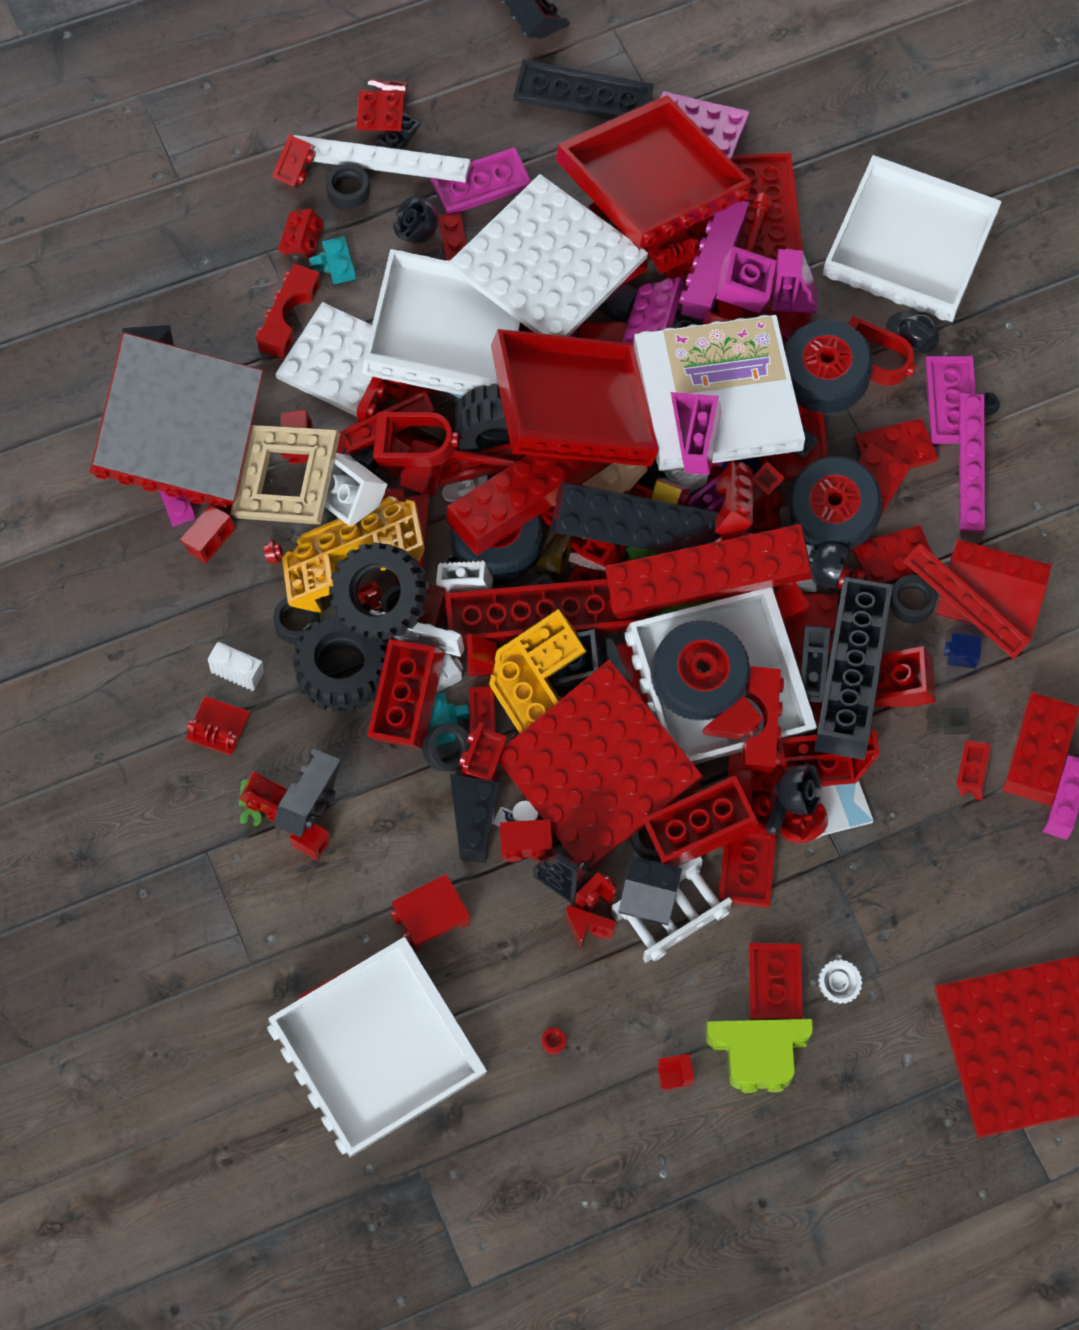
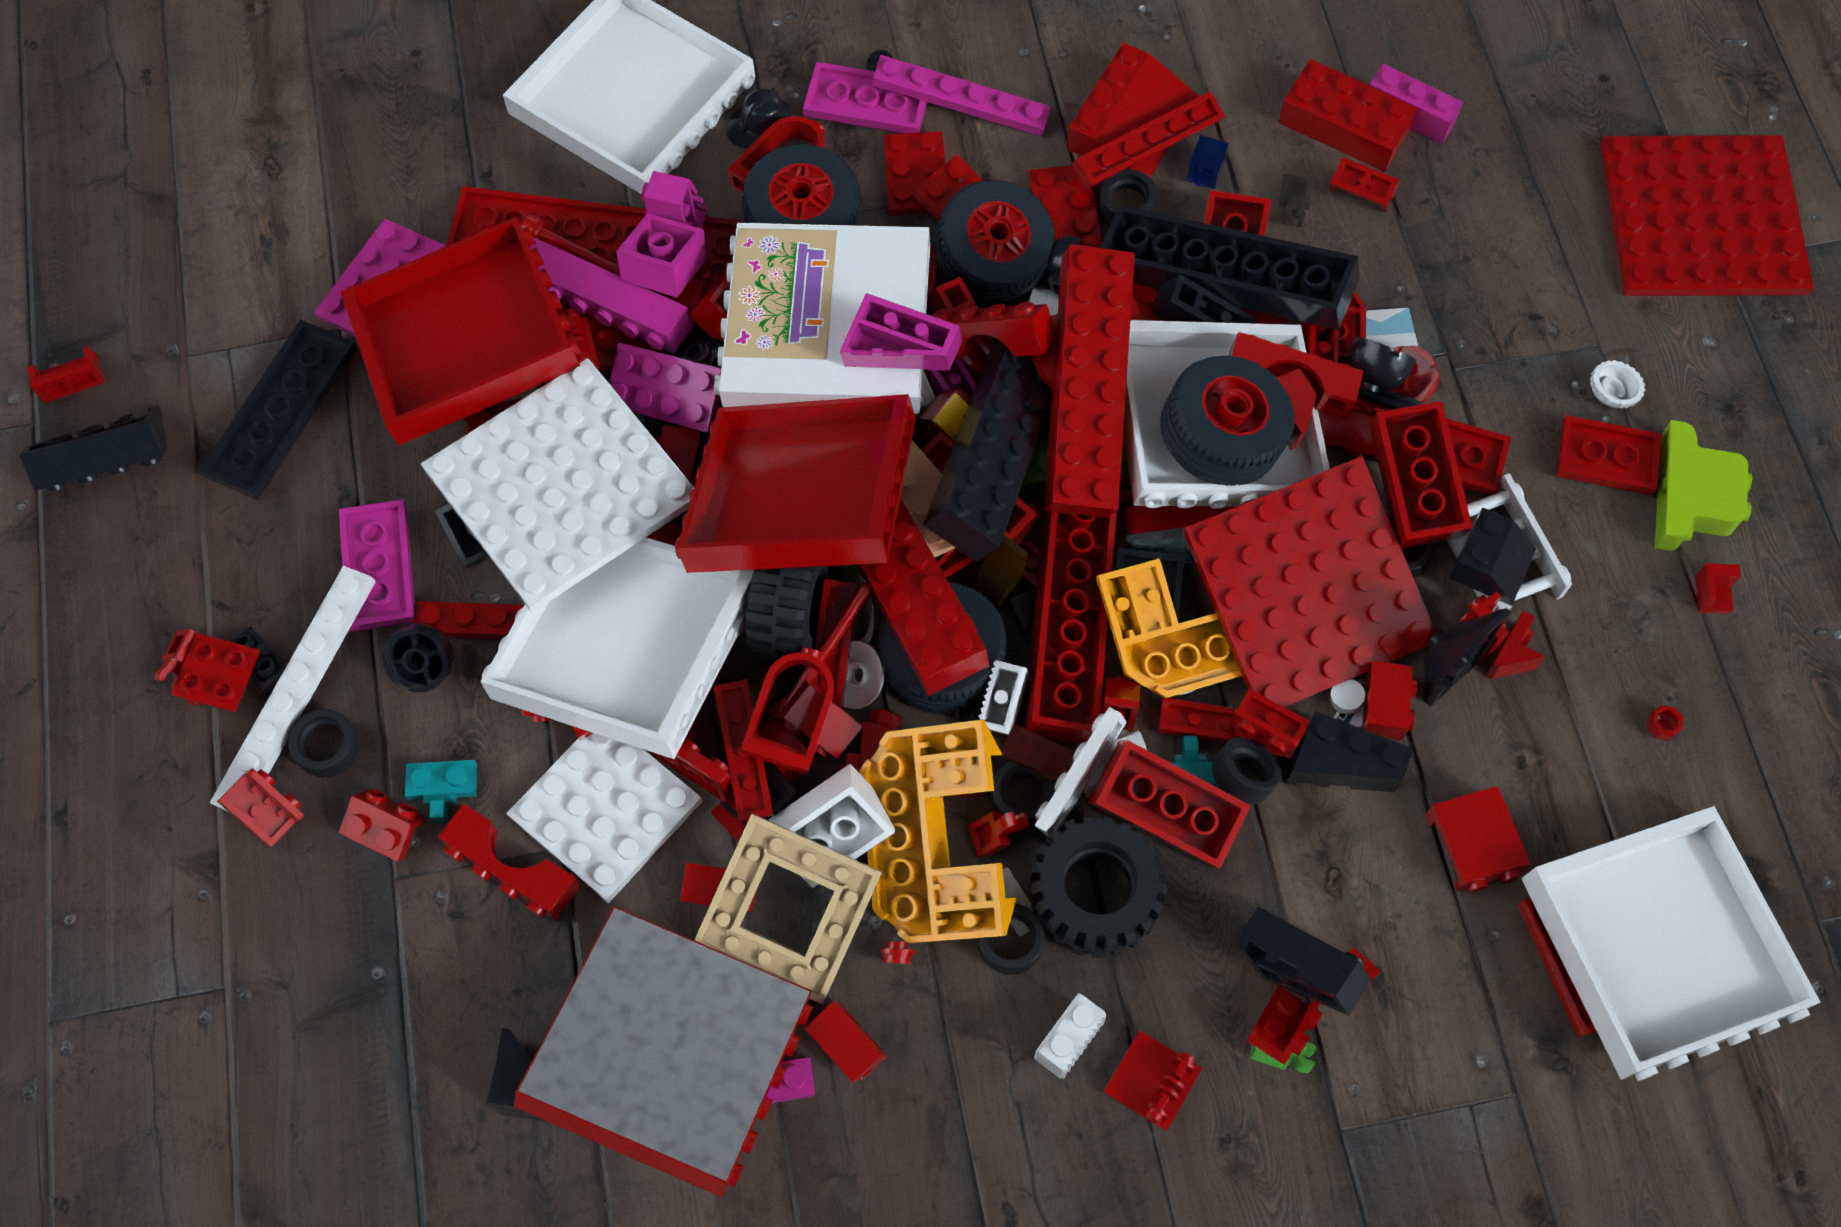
camera: 75 degrees left, 0 degrees up
(347, 584) = (1080, 783): black tyre -> none
(435, 513) = (886, 718): none -> red tile

